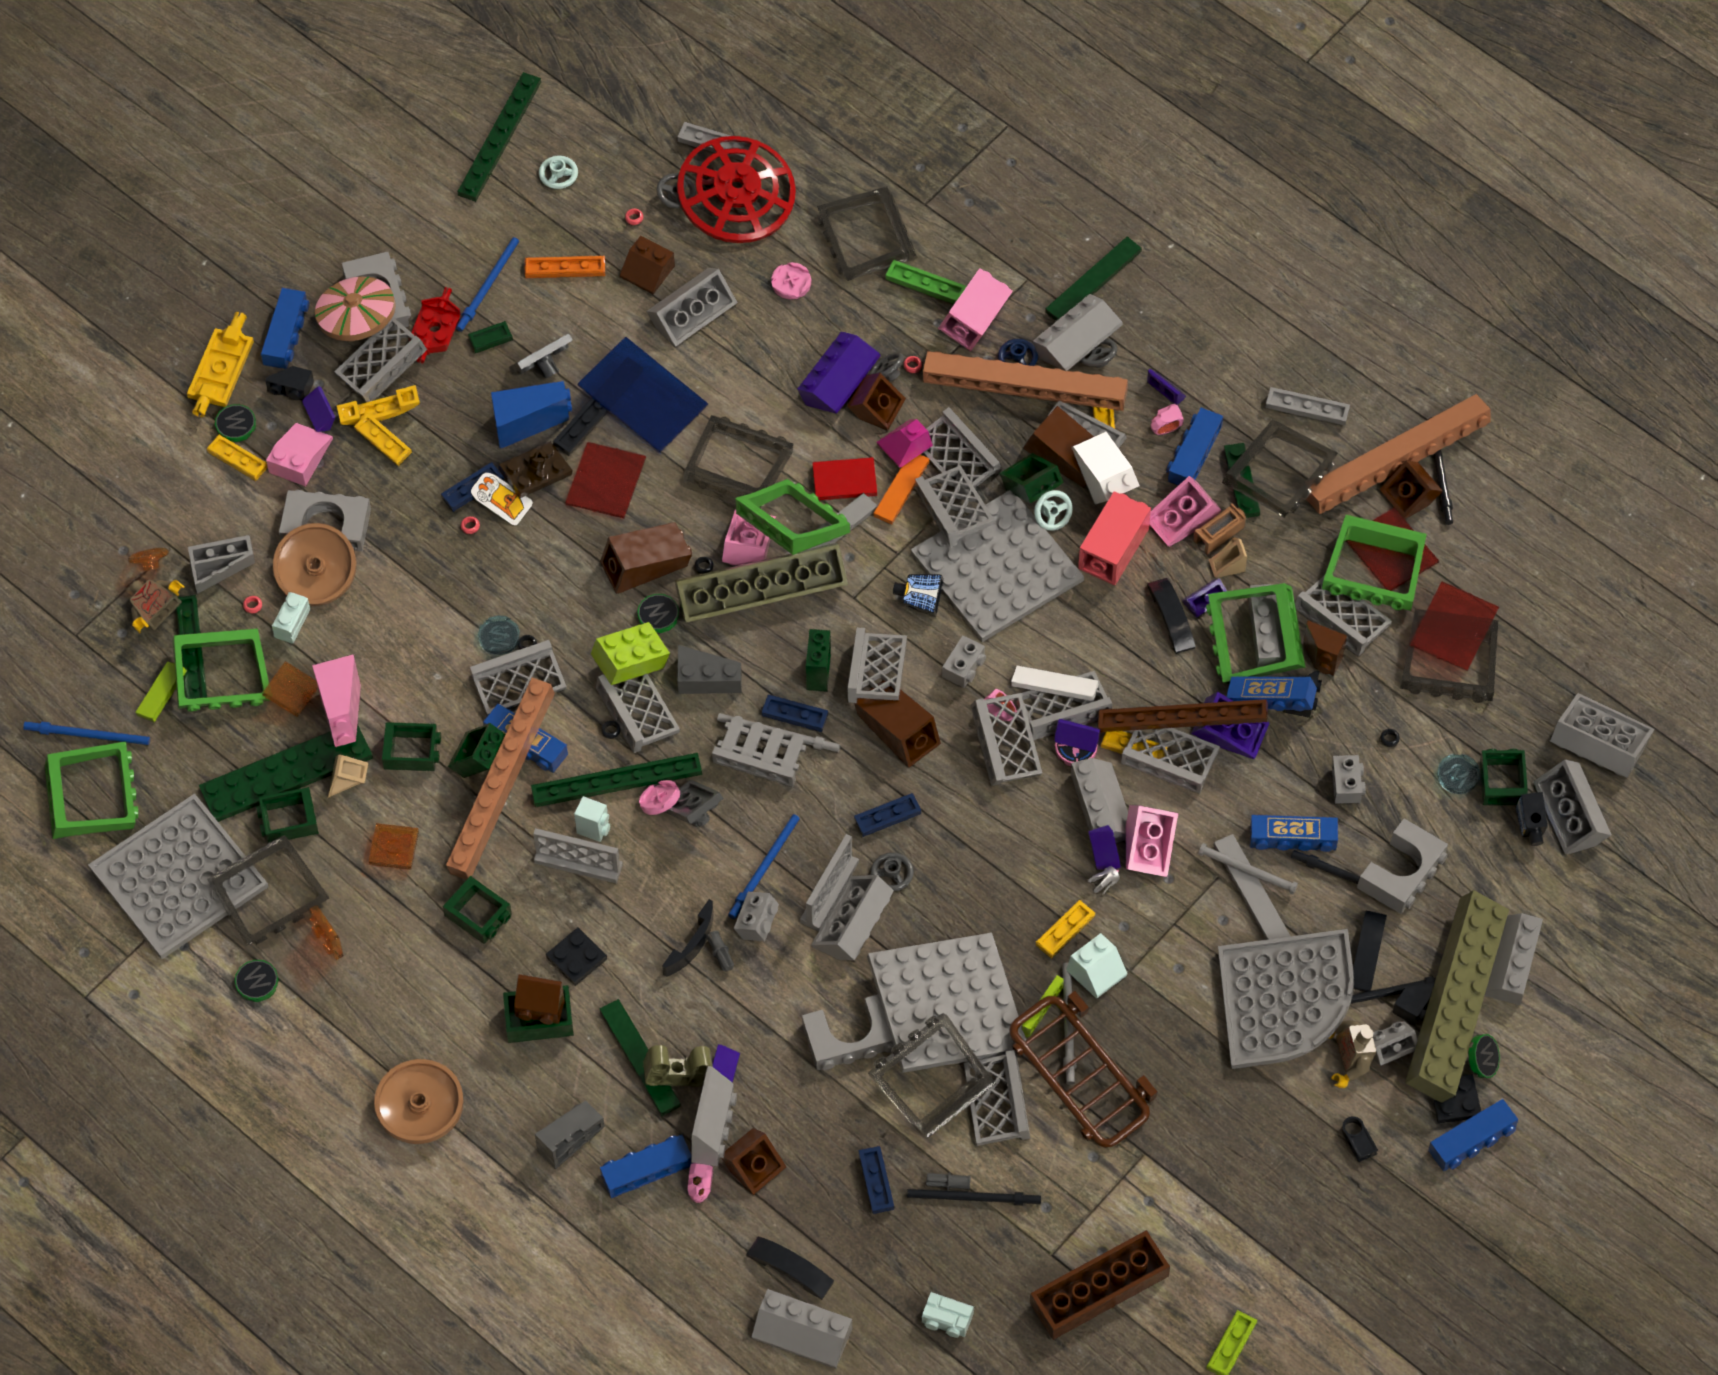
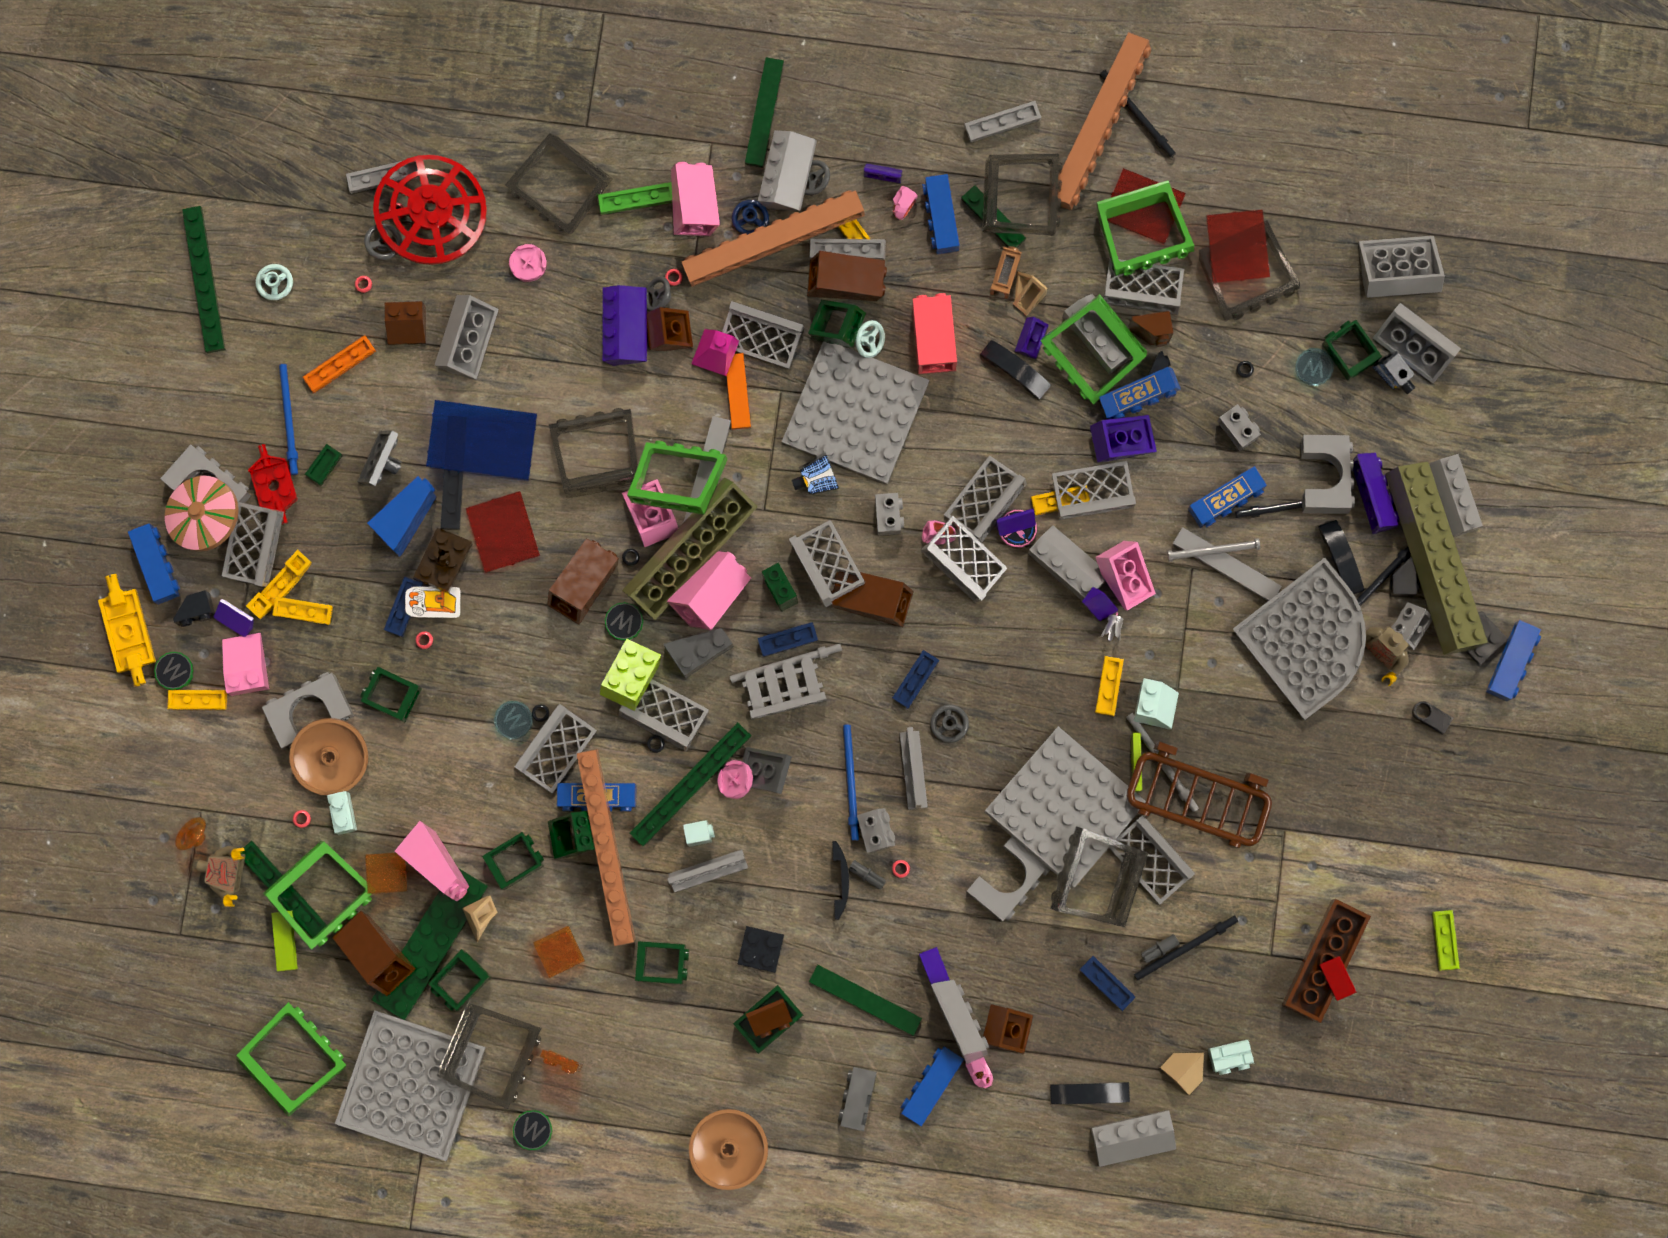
camera: 30 degrees left, 20 degrees up
(46, 728) = (216, 1029): blue bar -> none
(219, 560) = (249, 803): light grey wedge -> none
(229, 745) = (373, 953): none -> reddish brown slope
(414, 565) = (407, 703): none -> dark green window
(690, 1071) = (914, 988): olive beam -> none
(753, 627) = (710, 591): none -> bright pink slope
(755, 960) = (902, 875): none -> coral piece
(844, 478) = (688, 412): red tile -> none
(853, 917) = (947, 782): light grey slope -> none
(895, 1302) = (1185, 1070): none -> tan slope
(940, 514) = (780, 394): light grey fence -> none
(1054, 683) = (968, 487): white tile -> none
(1097, 1298) = (1338, 978): none -> red slope
(1104, 468) = (889, 280): white slope -> none
(1183, 512) = (969, 276): bright pink slope -> none
(1183, 715) = (1089, 458): reddish brown plate -> none
(1410, 489) = (1127, 146): reddish brown slope -> none
(1439, 908) = (1374, 492): none -> dark purple slope
(1484, 1056) = (1484, 592): tile -> none

